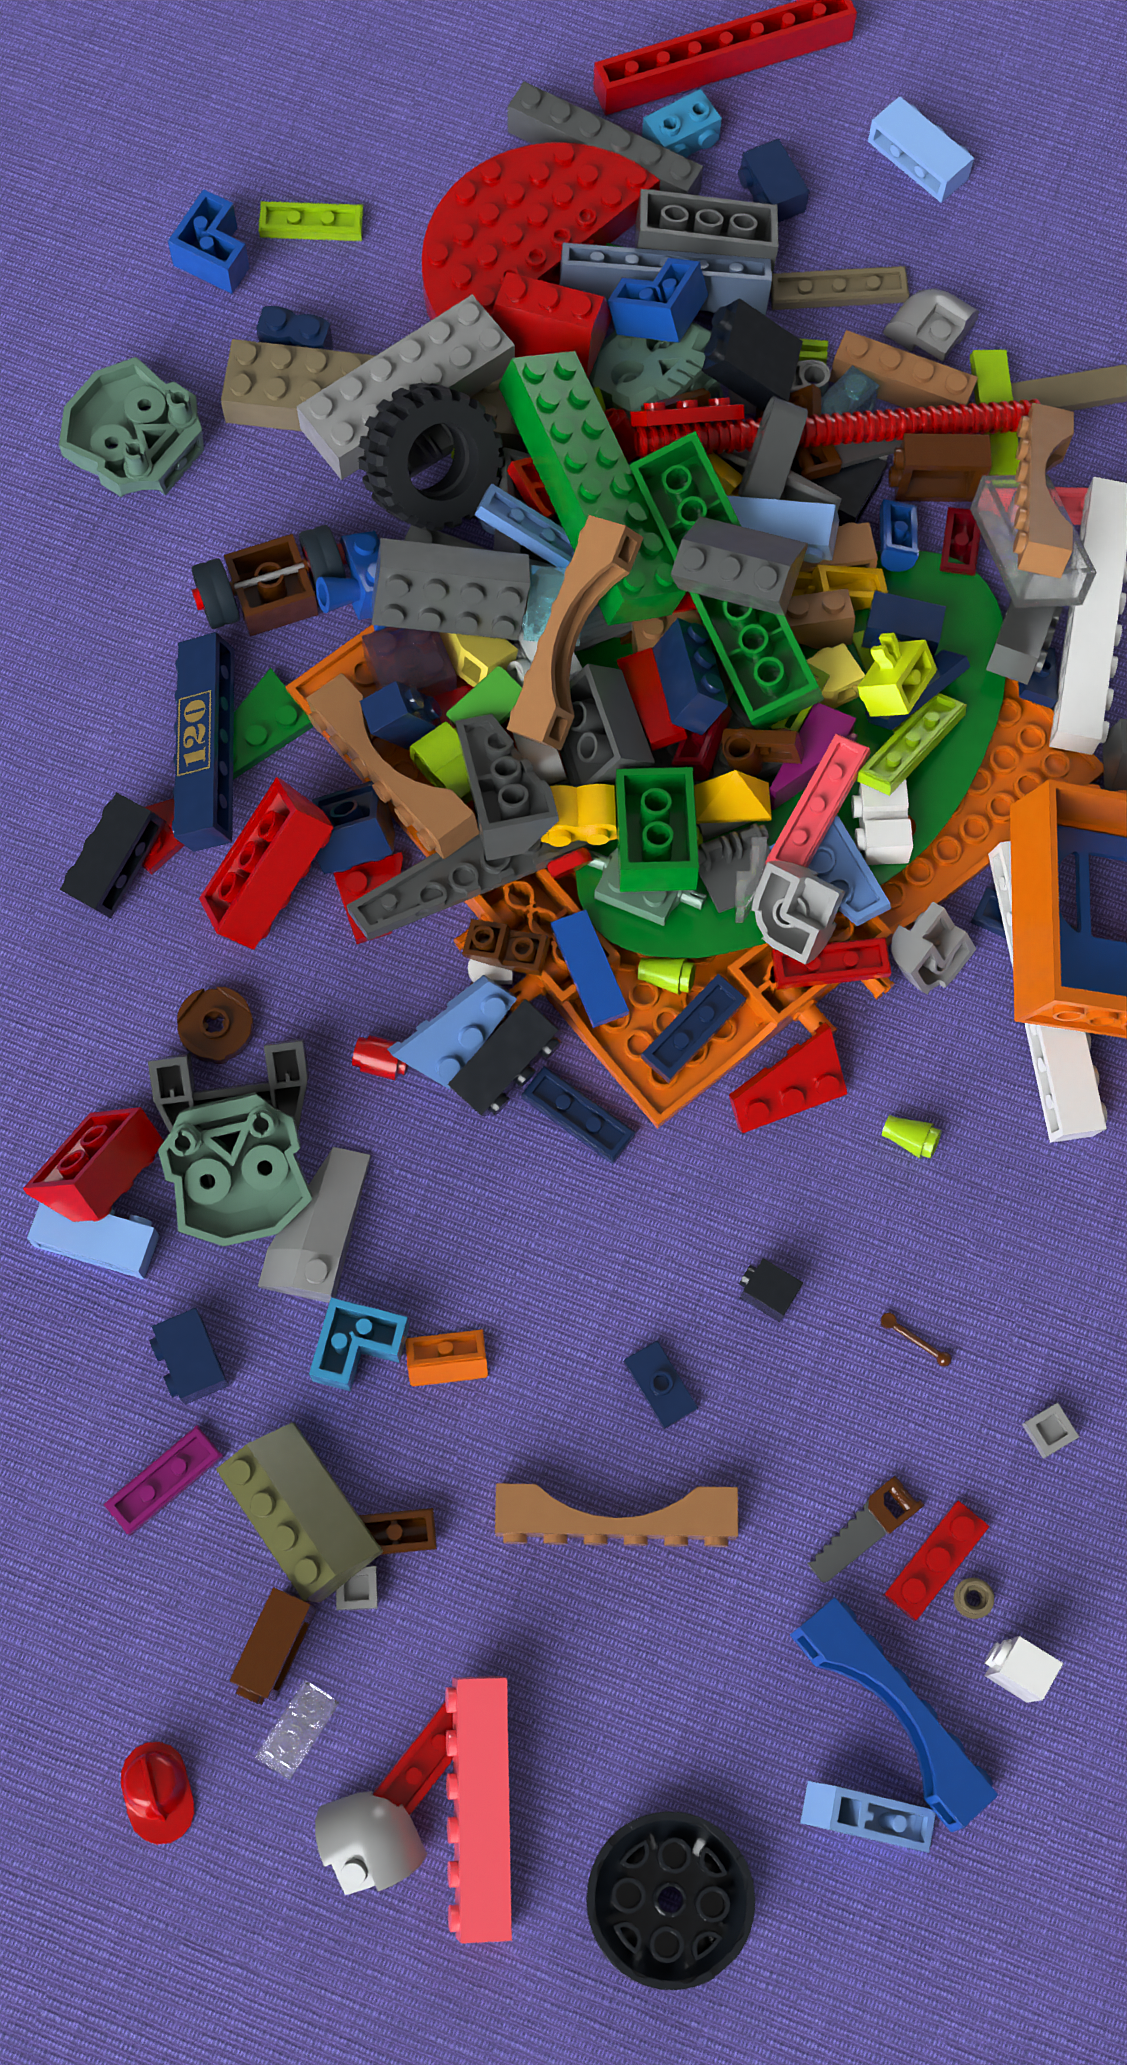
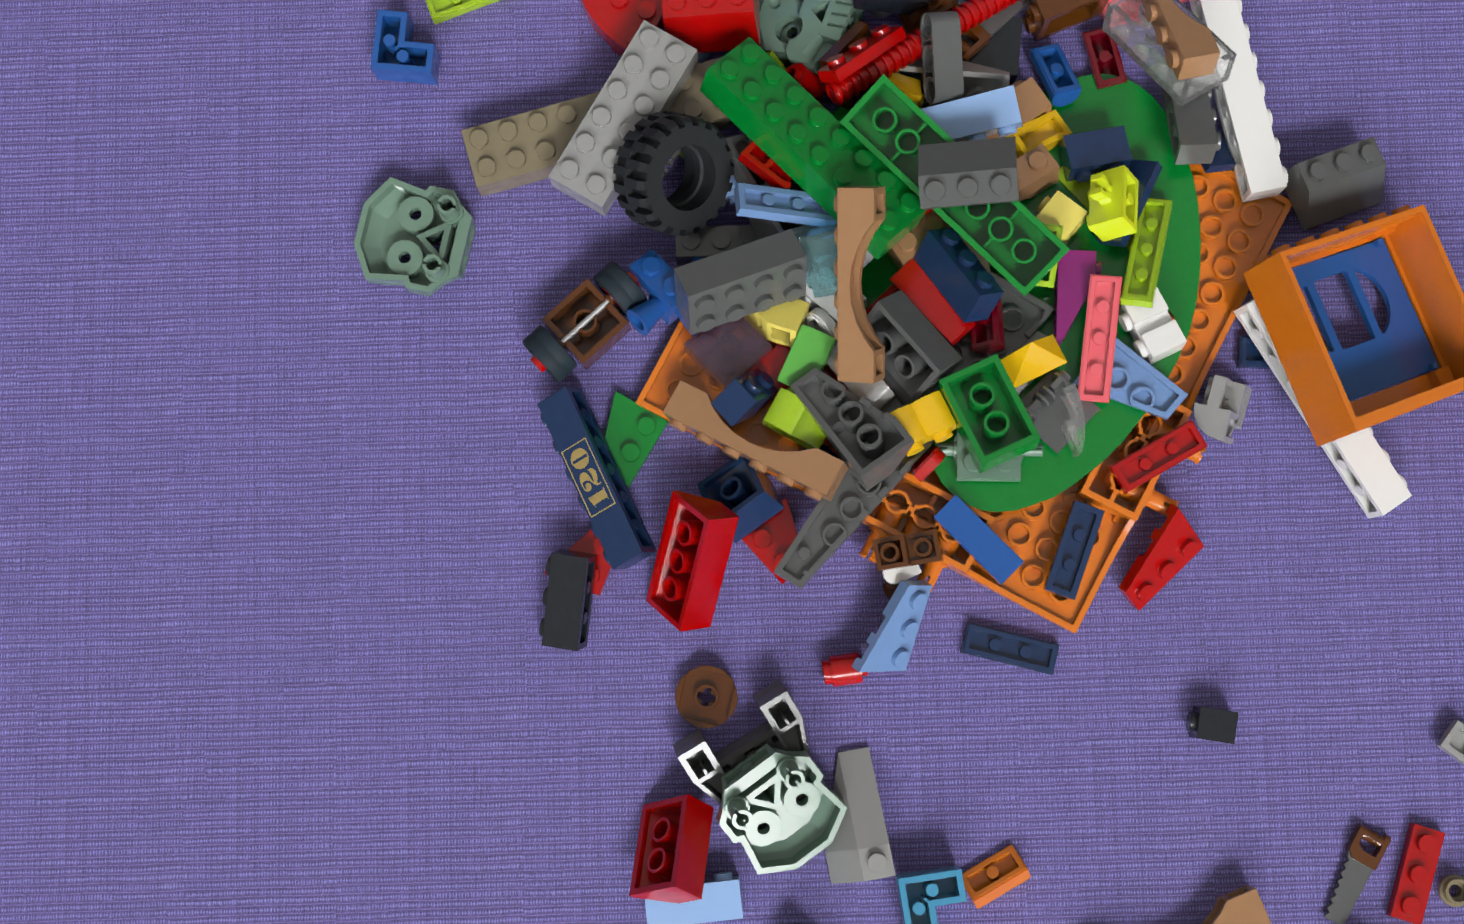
camera: 15 degrees left, 10 degrees up
(284, 327) = (498, 102): dark blue brick -> none
(507, 1059) = (943, 633): black brick -> none
(660, 1385) = (1161, 830): dark blue plate -> none
(668, 973) = (1036, 516): lime cone -> none
(761, 746) = (1050, 302): reddish brown plate -> none
(796, 909) = (1119, 431): light grey brick -> none
(888, 1321) = (1306, 708): reddish brown hinge -> none
(914, 1136) = (1267, 558): lime cone -> none

